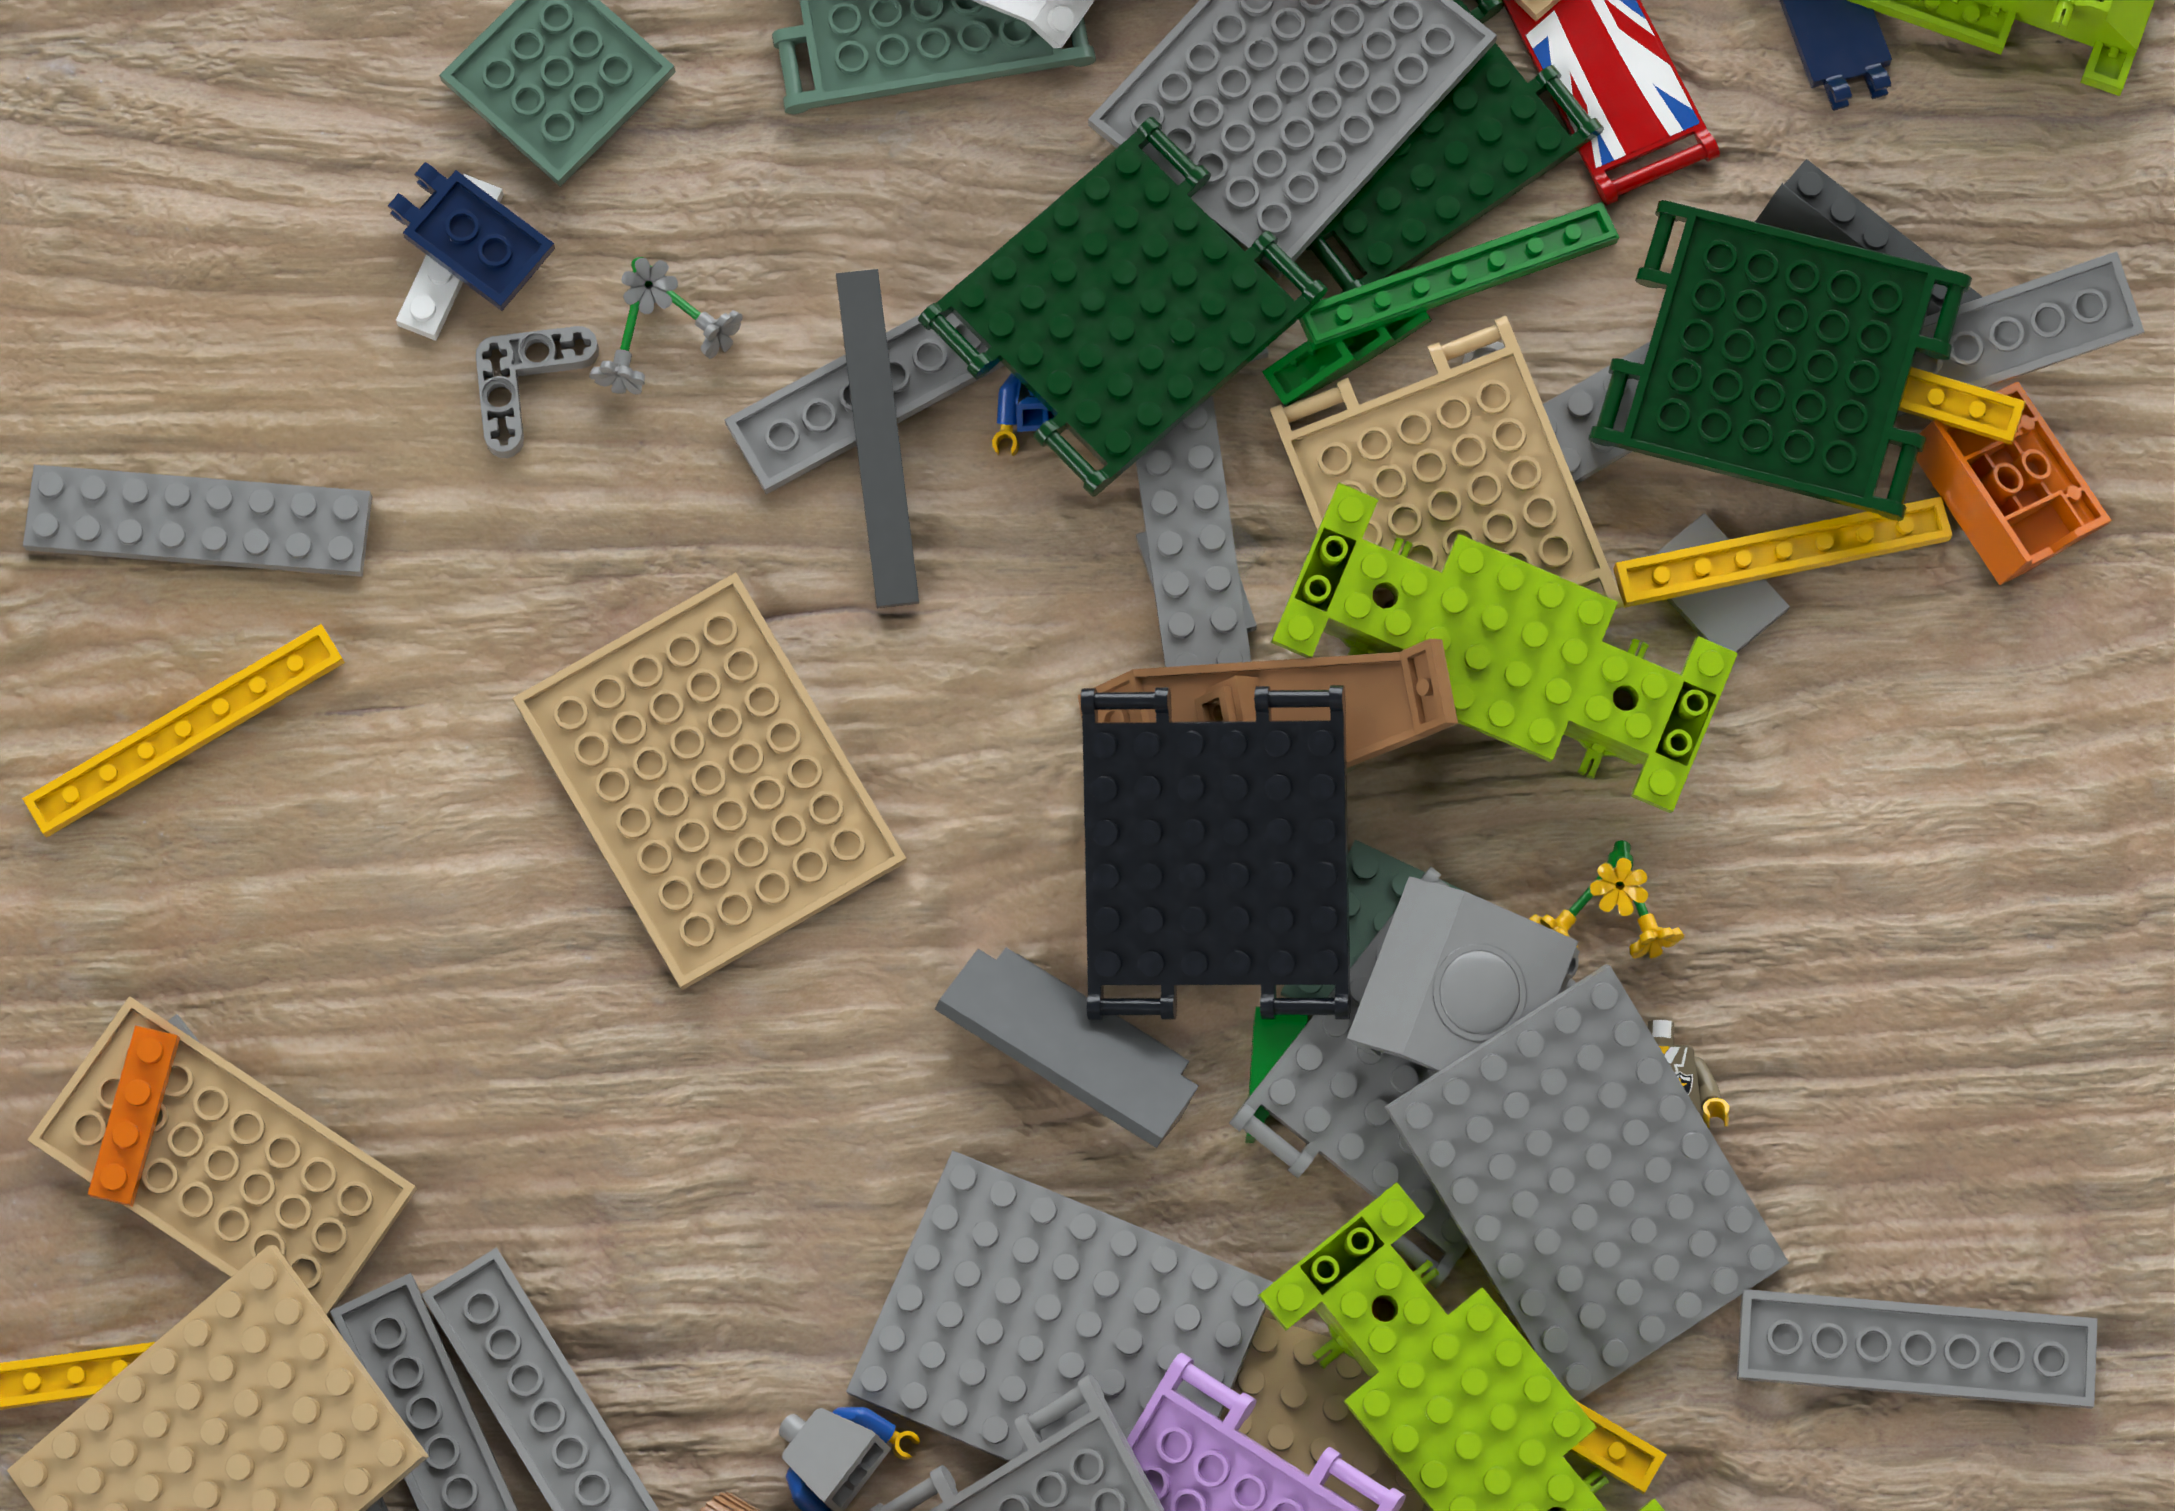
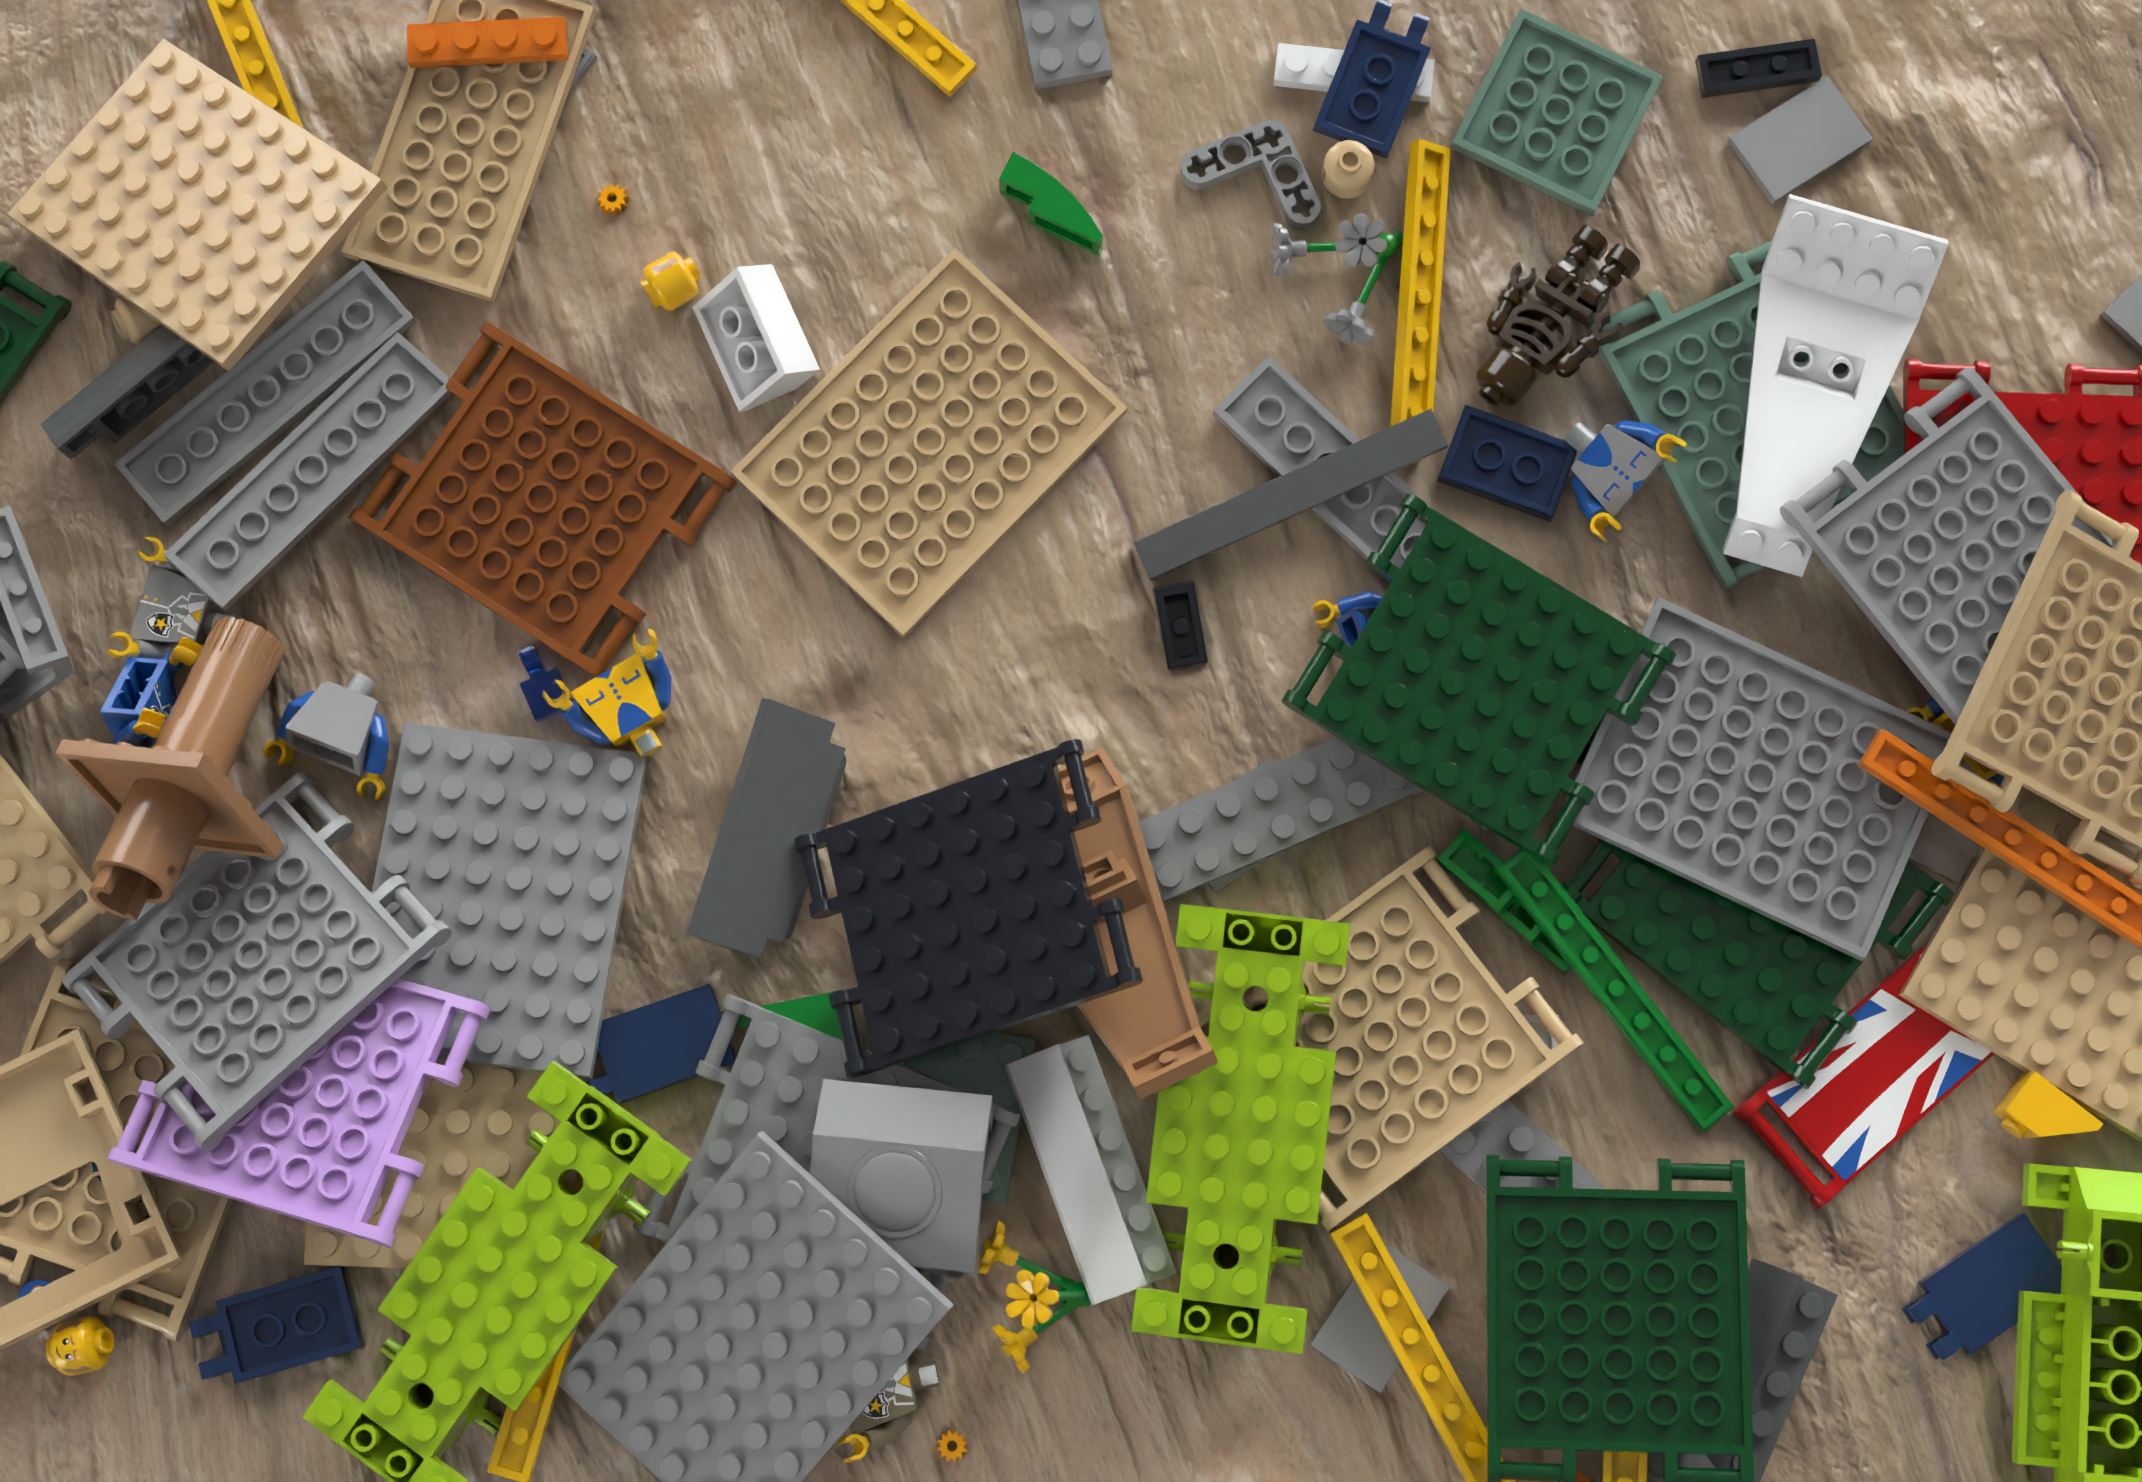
camera: 75 degrees right, 5 degrees up
(342, 1029) = (607, 194): none -> light orange piece
(455, 995) = (671, 281): none -> yellow head
(496, 590) = (1049, 204): none -> green slope
(543, 925) = (755, 336): none -> white slope
(555, 288) = (1348, 169): none -> tan head
(648, 1190) = (542, 499): none -> dark orange plate
(695, 254) = (1420, 280): none -> yellow plate
(811, 191) = (1510, 368): none -> dark brown piece
(854, 1240) = (539, 681): none -> clear blue plate
(891, 1157) = (622, 701): none -> torso
(904, 225) = (1507, 463): none -> dark blue tile
(944, 121) = (1615, 467): none -> torso
(972, 585) = (1180, 624): none -> black slope
(1255, 1210) = (658, 1044): none -> dark blue tile
(1501, 817) = (1090, 1169): none -> white slope
(1734, 1022) = (952, 1437): none -> light orange piece

